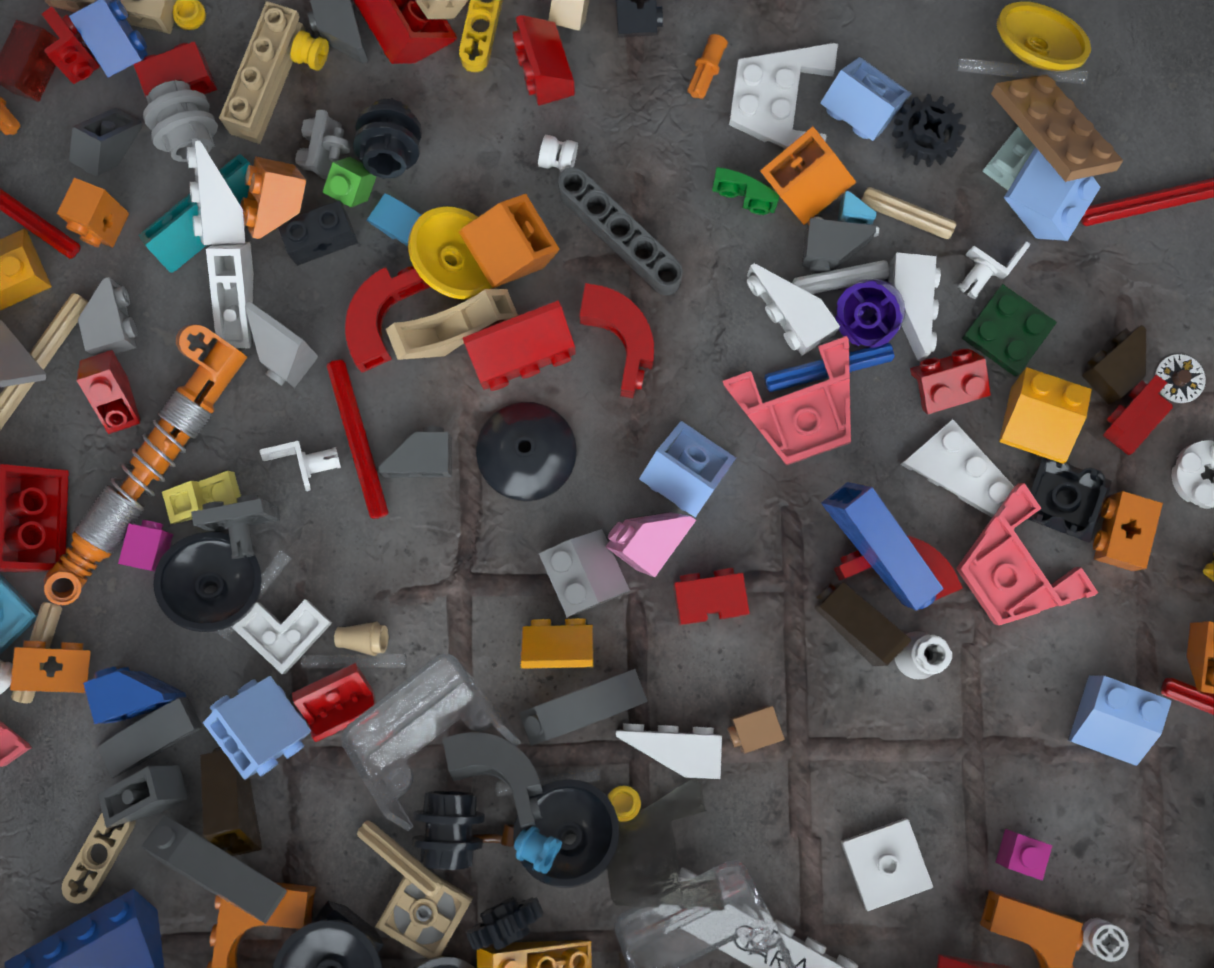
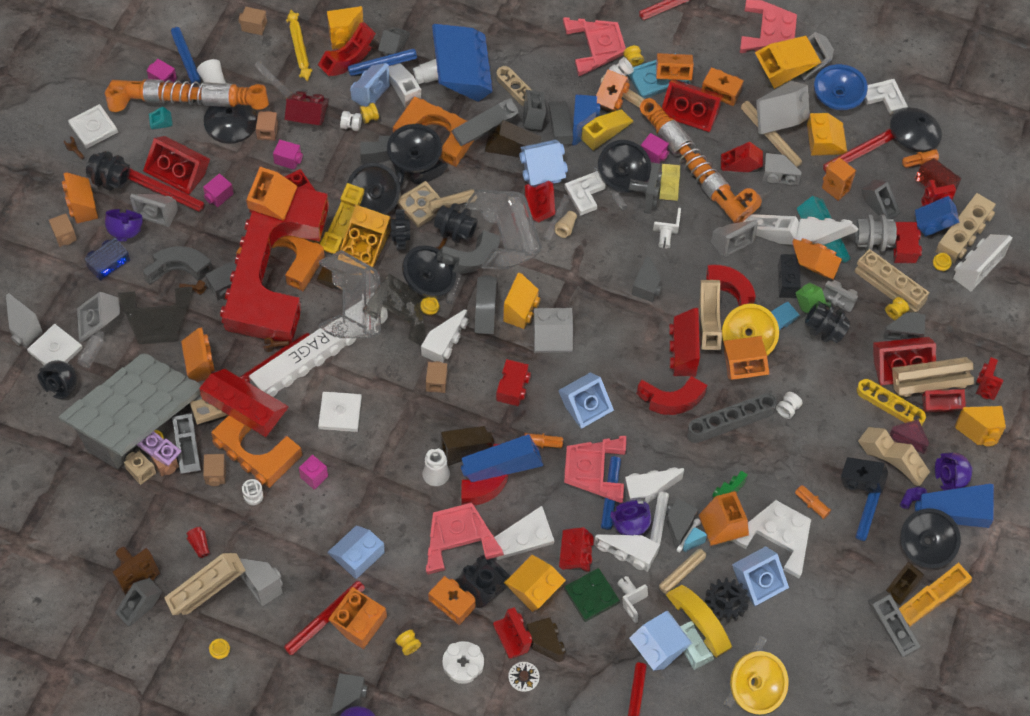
camera: 110 degrees right, 20 degrees down
(132, 649) = (604, 128): none -> yellow slope
(357, 439) = (670, 258): red axle -> none
(528, 474) = (629, 341): black dish -> none
(537, 849) = (428, 250): dark azure brick -> none
(542, 59) = (846, 414): red slope -> none
(649, 540) = (557, 358): bright pink slope -> none
(789, 507) = (546, 441): none -> orange axle
(971, 162) = (702, 617): none -> yellow slope
(1056, 127) = (697, 657): medium nougat plate -> none

